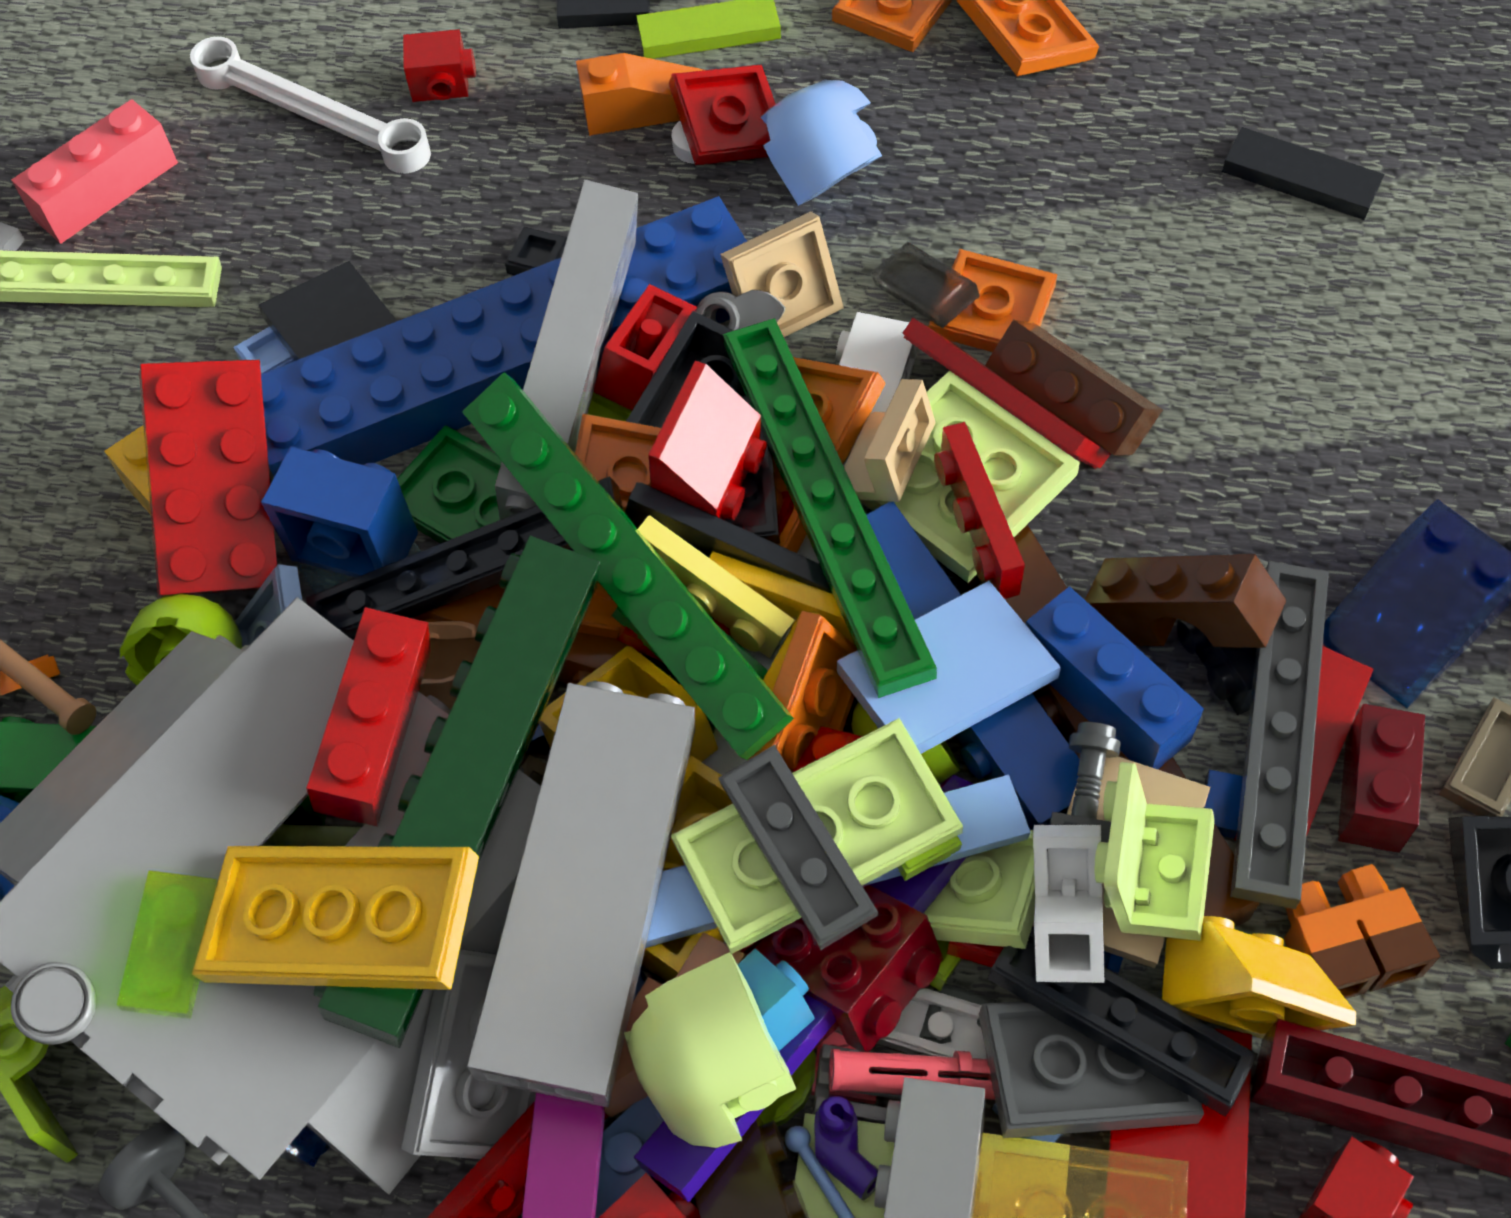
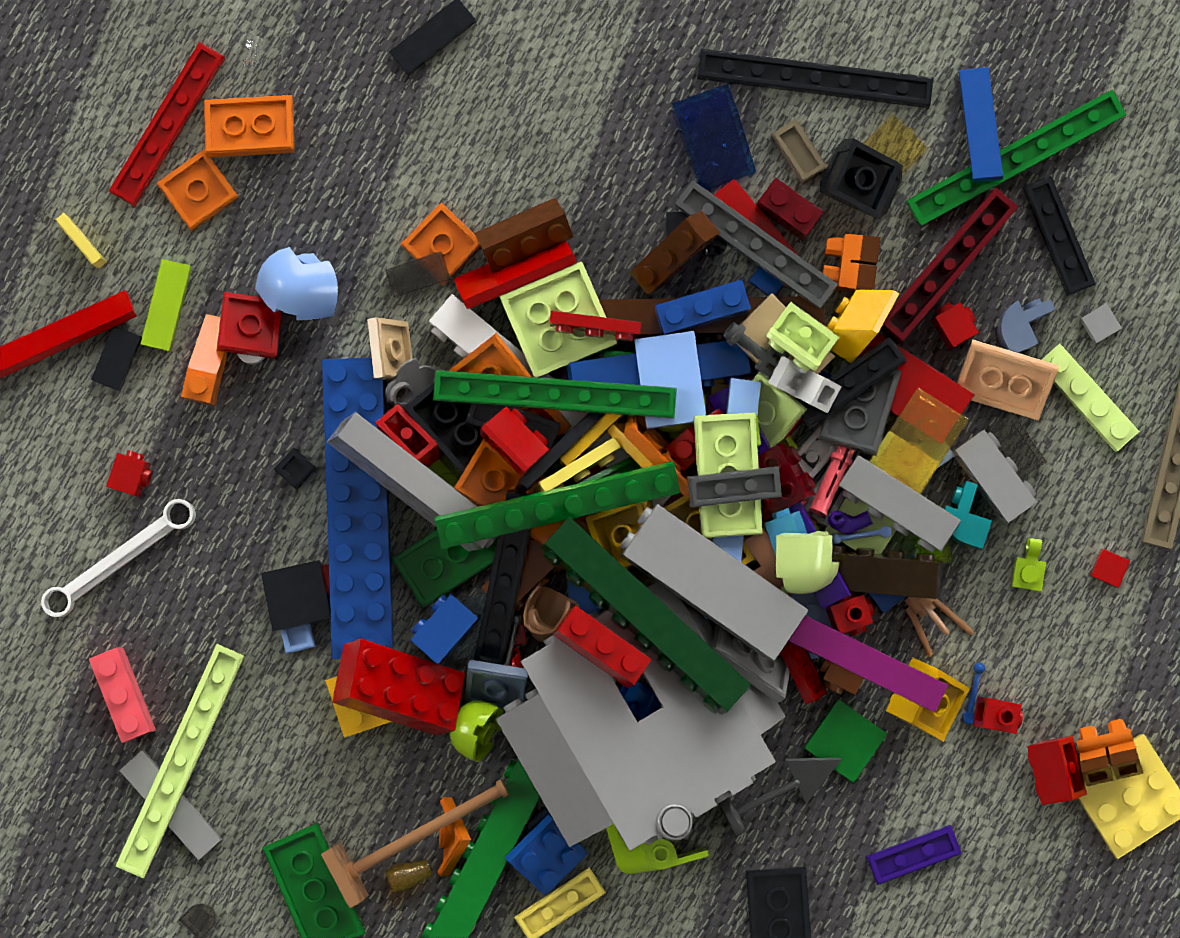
camera: 70 degrees left, 25 degrees up
(166, 945) = (667, 767): clear neon green plate -> none
(338, 916) = (693, 691): yellow tile -> none
(891, 444) = (539, 351): tan panel -> none

